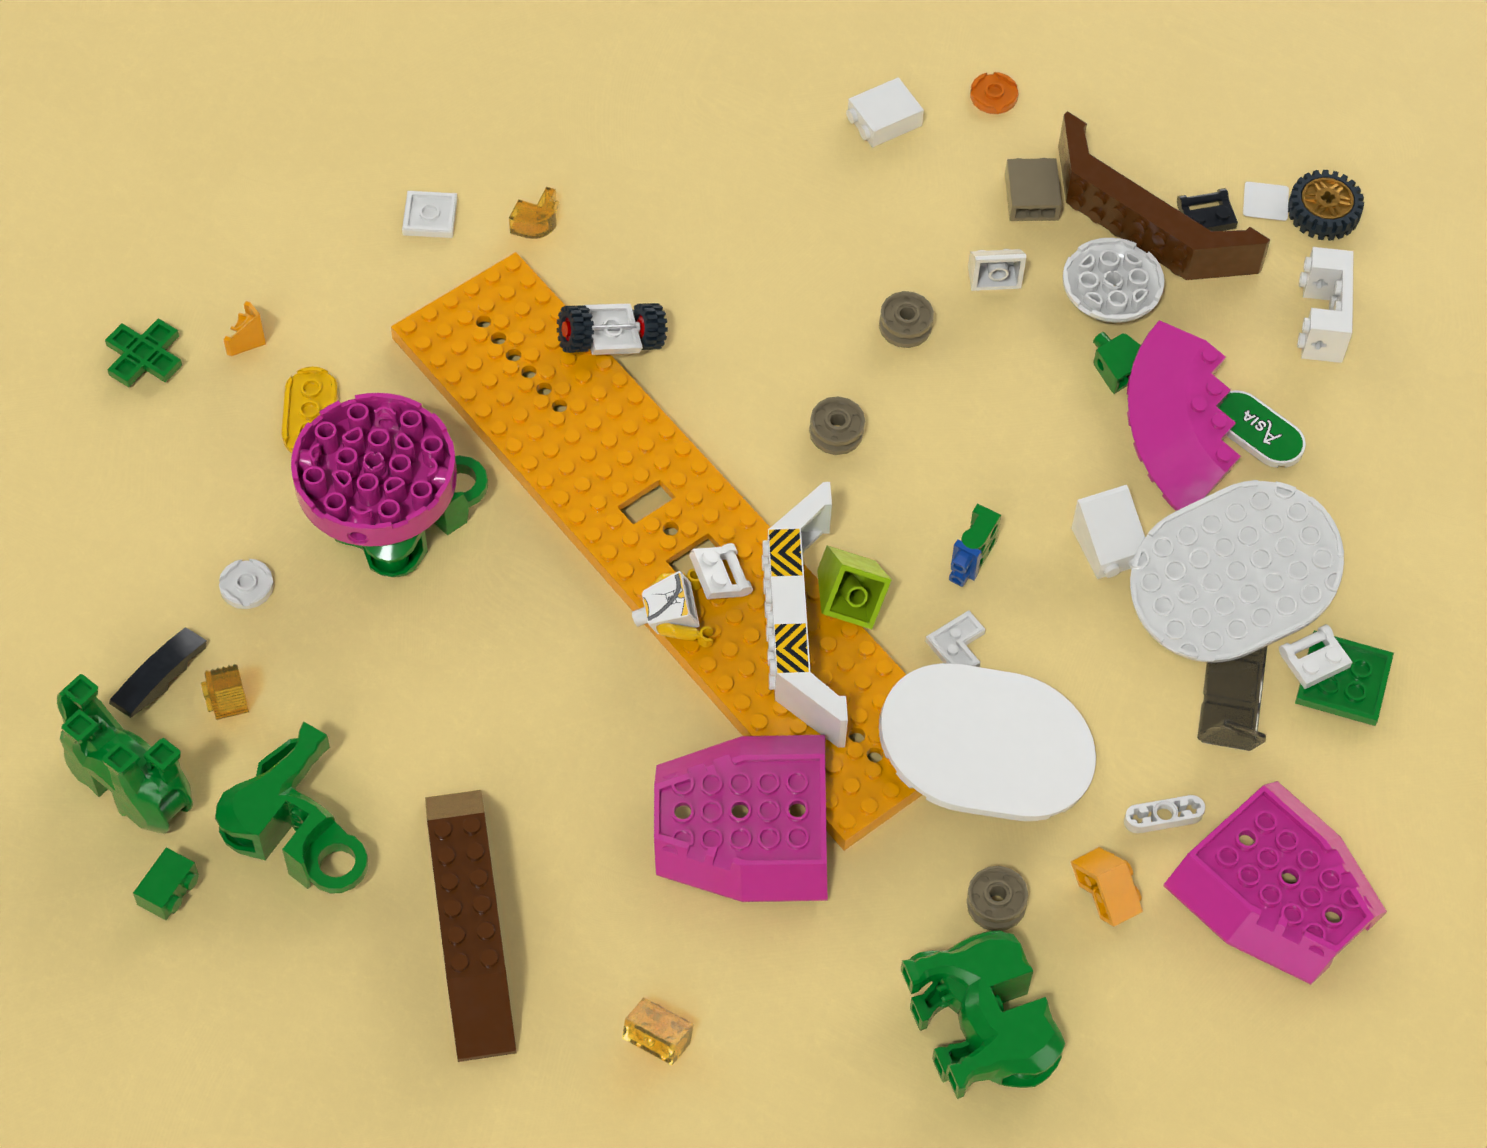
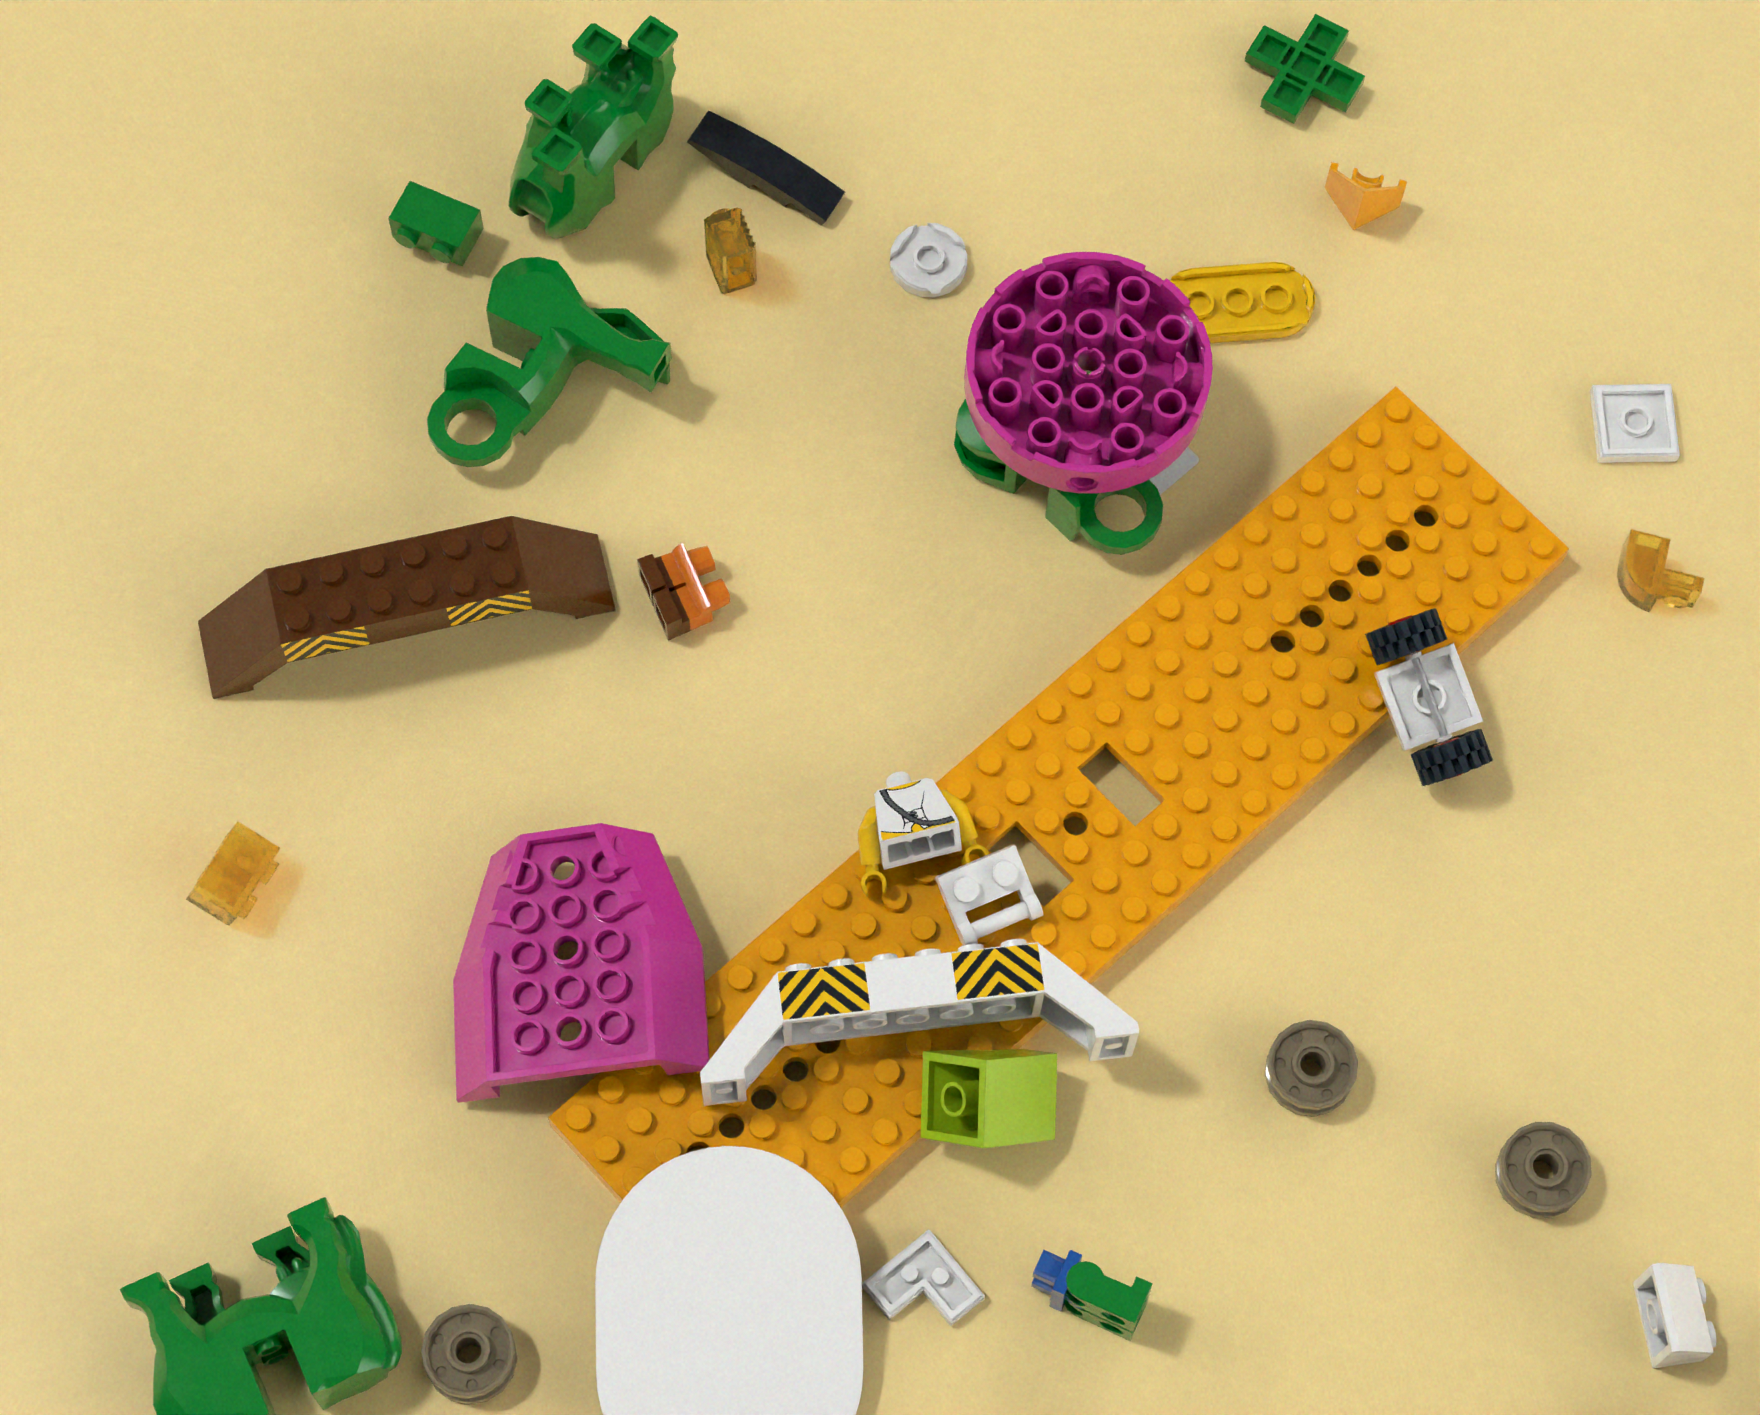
camera: 85 degrees right, 10 degrees up
(465, 743) = (677, 591): none -> hips

